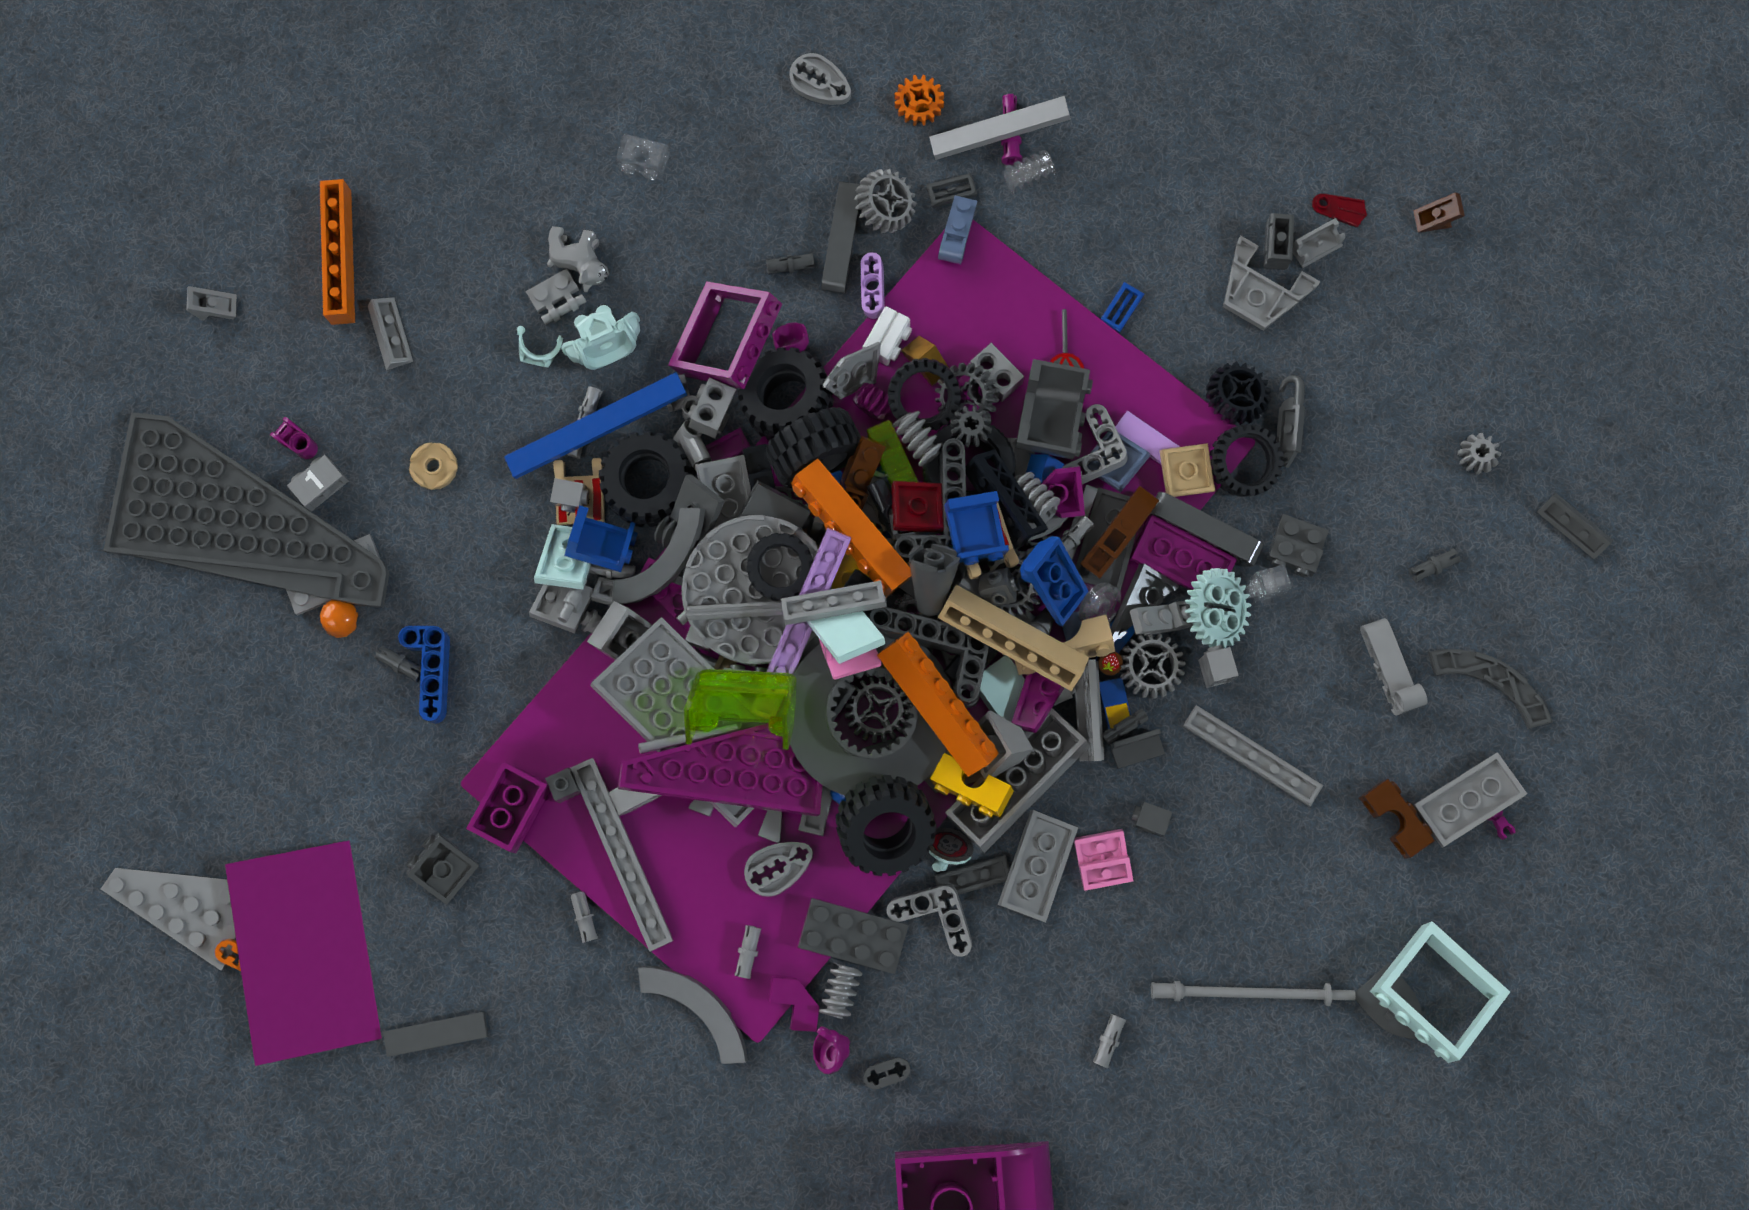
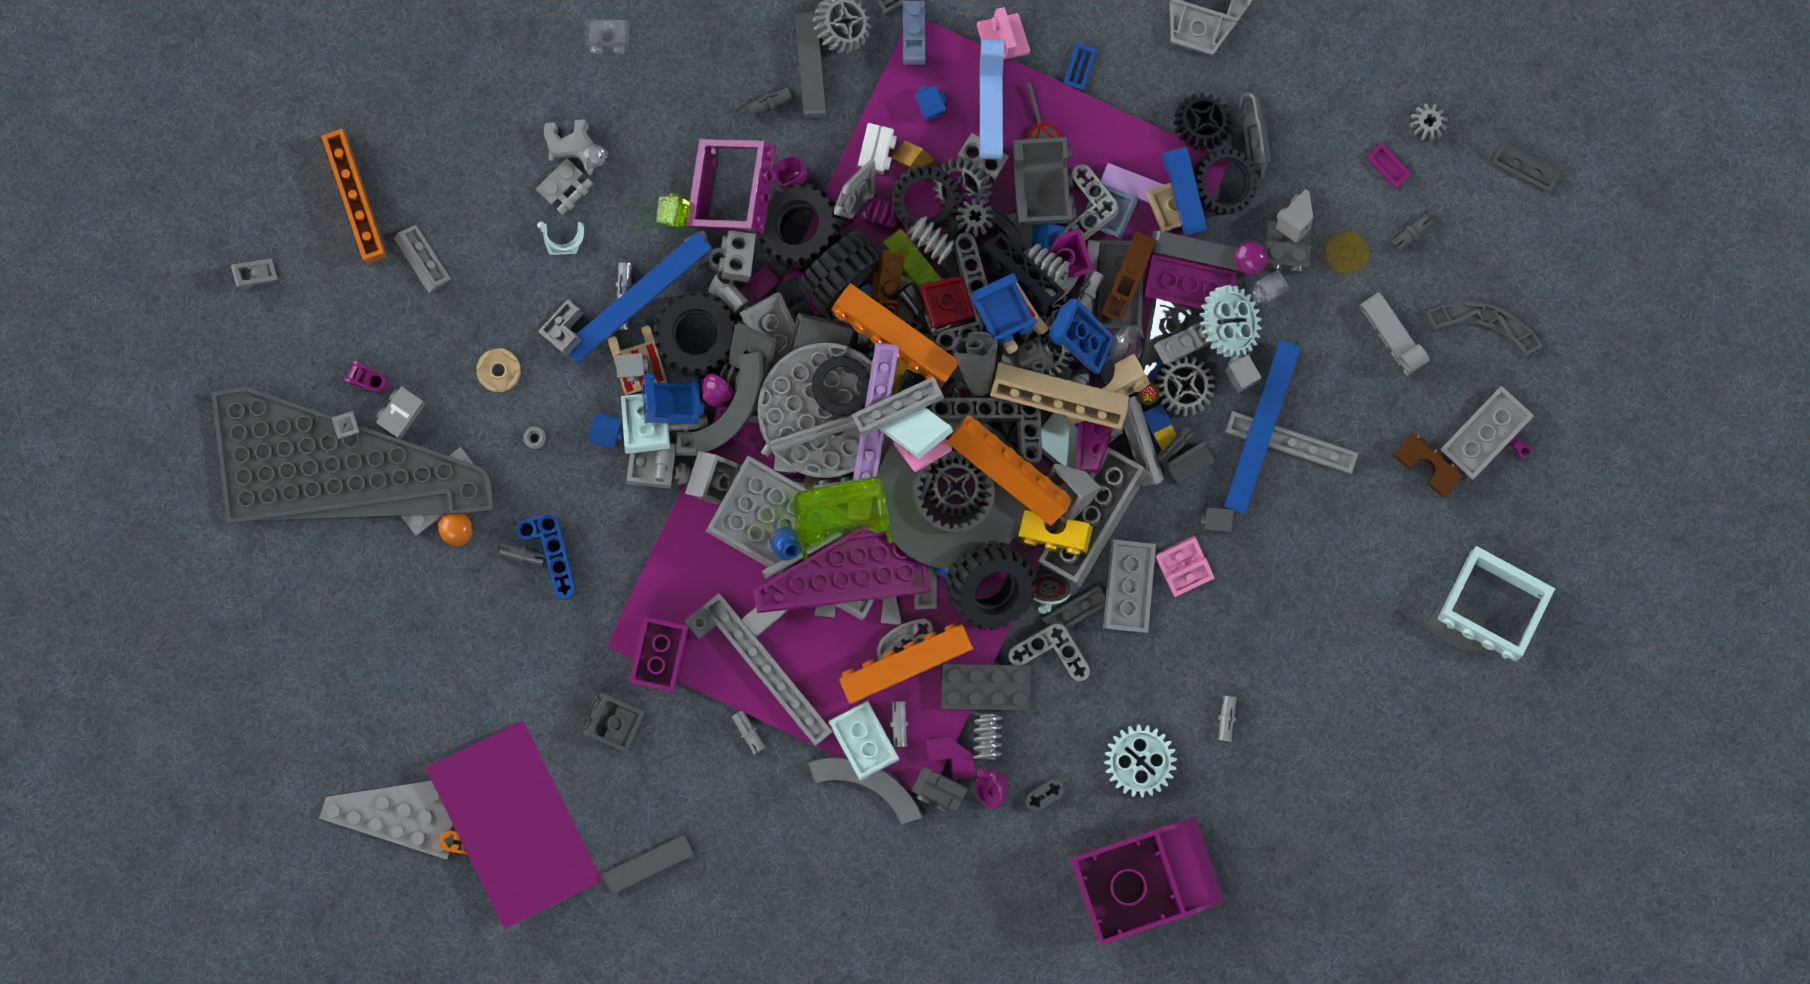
camera: 20 degrees left, 5 degrees up
(253, 479) = (345, 425): none -> light grey tile
(441, 544) = (527, 437): none -> light grey plate
(505, 438) = (558, 327): none -> tile
(523, 554) = (606, 430): none -> blue brick
(602, 338) = (619, 215): light aqua piece -> none
(649, 541) = (716, 390): none -> magenta hat
(658, 347) = (672, 210): none -> clear neon green brick
(670, 720) = (785, 543): none -> blue head
(704, 960) = (863, 740): none -> light aqua tile
(770, 887) = (905, 664): none -> orange brick
(772, 1037) = (939, 790): none -> dark grey brick
(866, 277) = (858, 108): lavender beam -> none
(956, 303) = (930, 102): none -> blue brick
(982, 1075) = (1126, 776): none -> light aqua gear
(1021, 310) = (991, 99): none -> light blue beam
(1049, 255) = (1005, 28): none -> bright pink bracket
(1178, 991) = (1275, 661): light grey bar -> none
(1202, 433) = (1185, 190): none -> blue beam
(1224, 730) = (1262, 427): none -> blue tile
(1256, 546) = (1251, 257): none -> magenta hair
(1315, 517) = (1297, 218): none -> light grey slope
(1359, 568) = (1347, 252): none -> clear yellow tile
(1425, 488) = (1388, 165): none -> magenta tile

